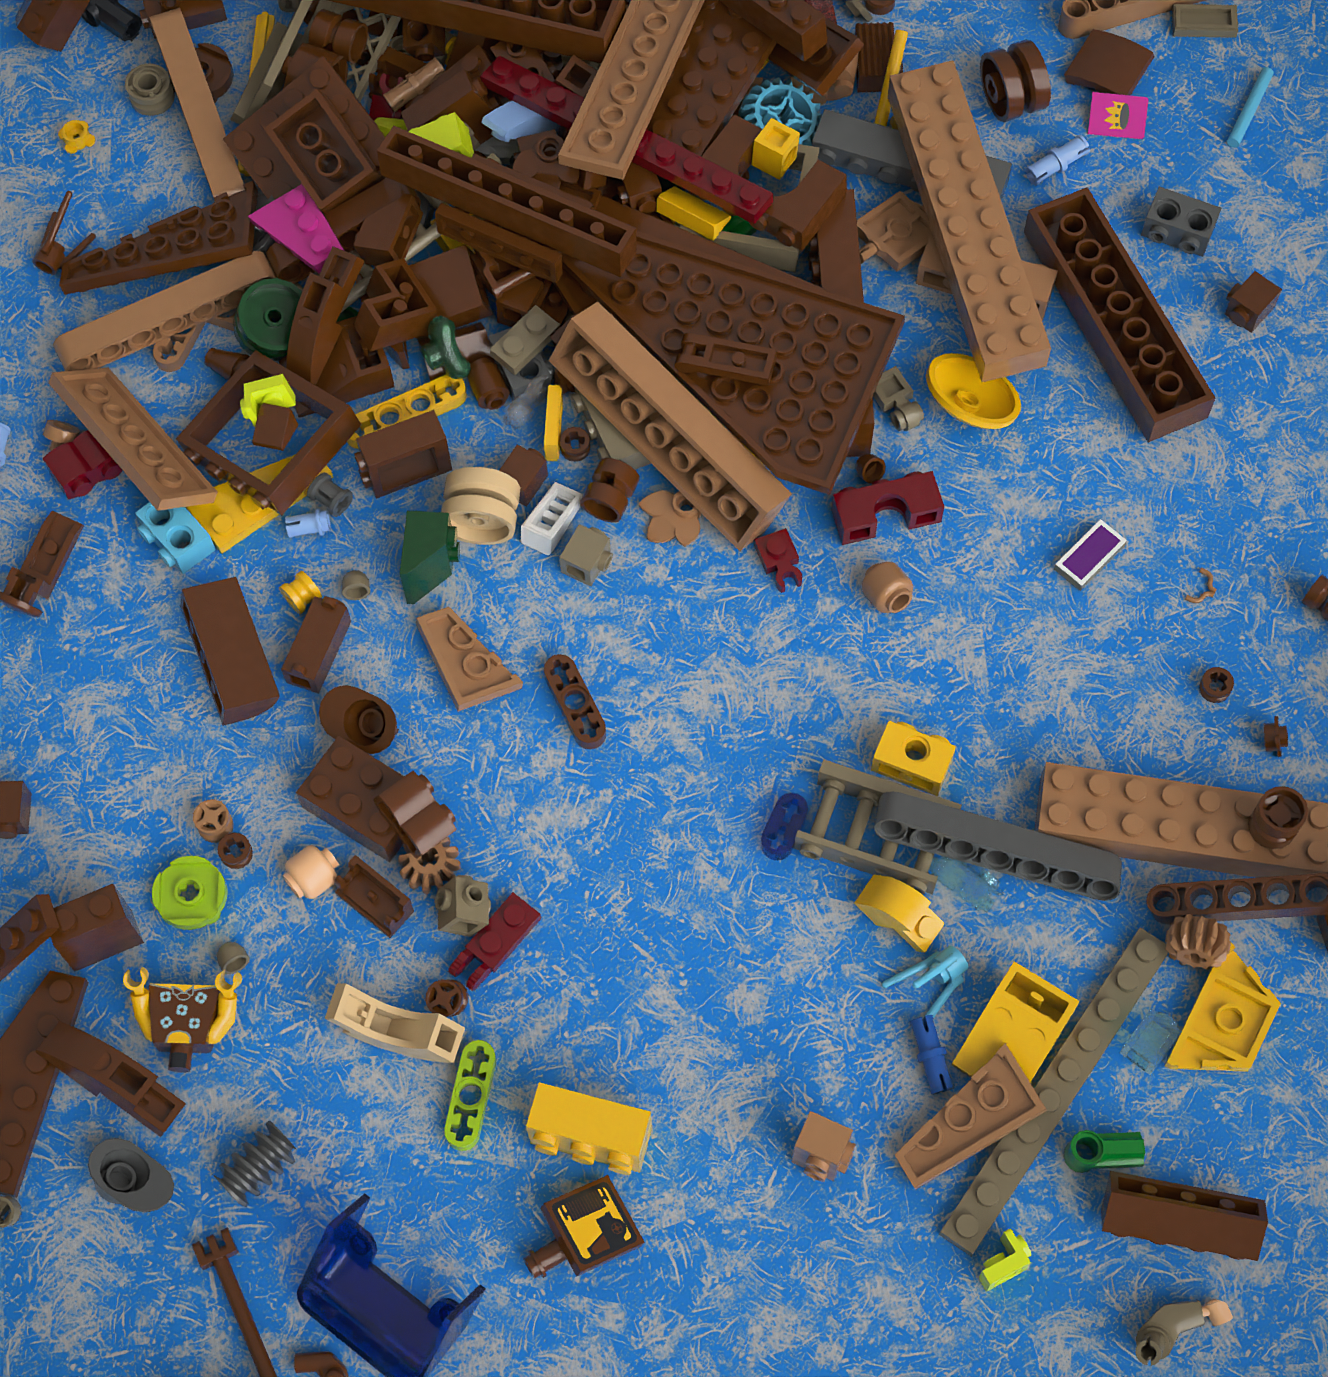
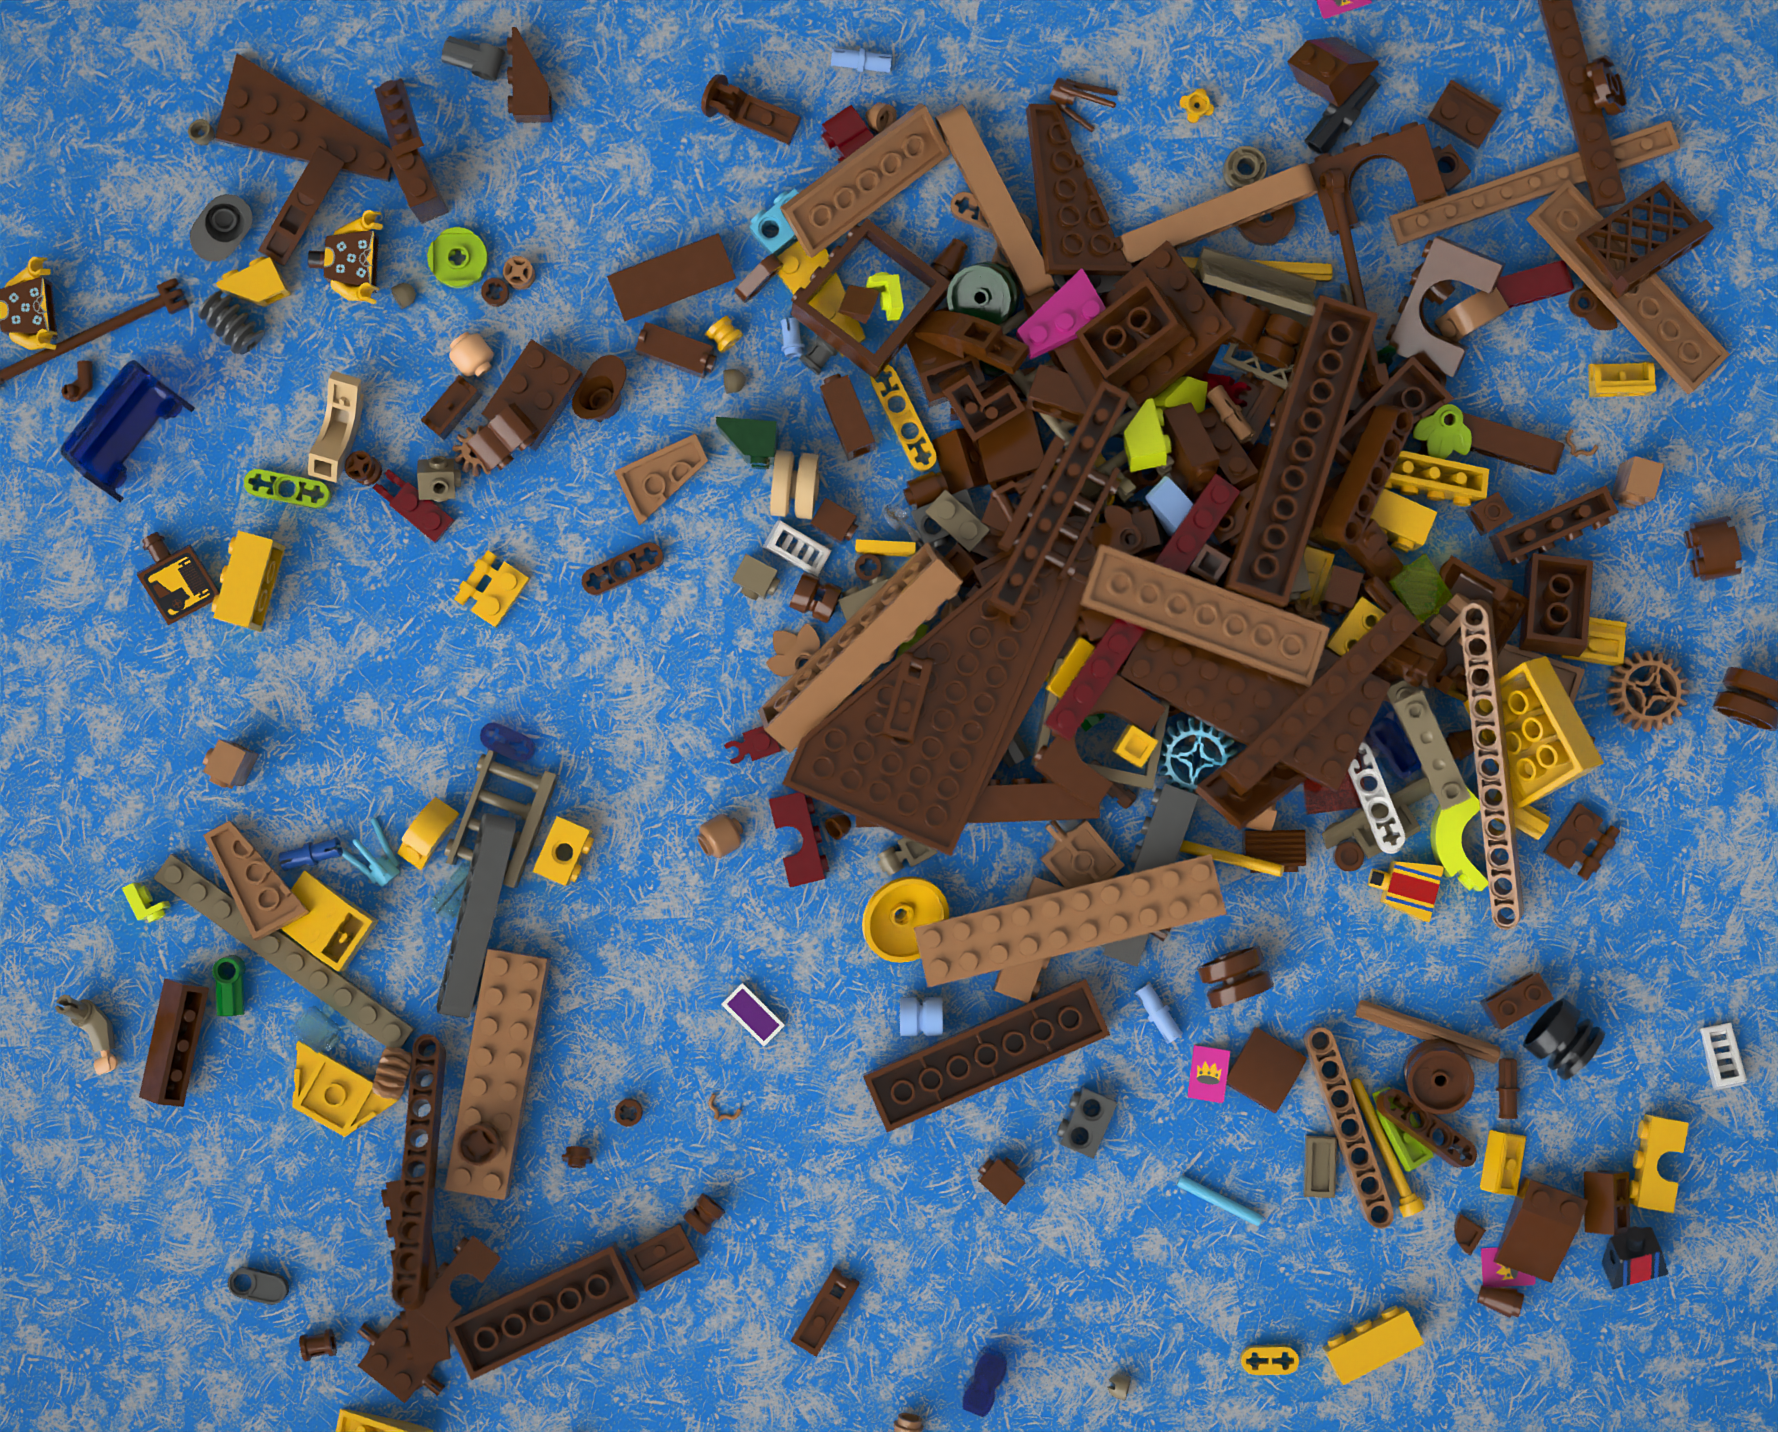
camera: 90 degrees right, 20 degrees up
(208, 1133) = (256, 284): none -> yellow slope
(237, 554) = (758, 278): none -> beam
(443, 349) = (947, 449): clear green piece -> none
(603, 839) = (499, 594): none -> yellow plate
(1079, 380) = (921, 1016): none -> light blue wheel

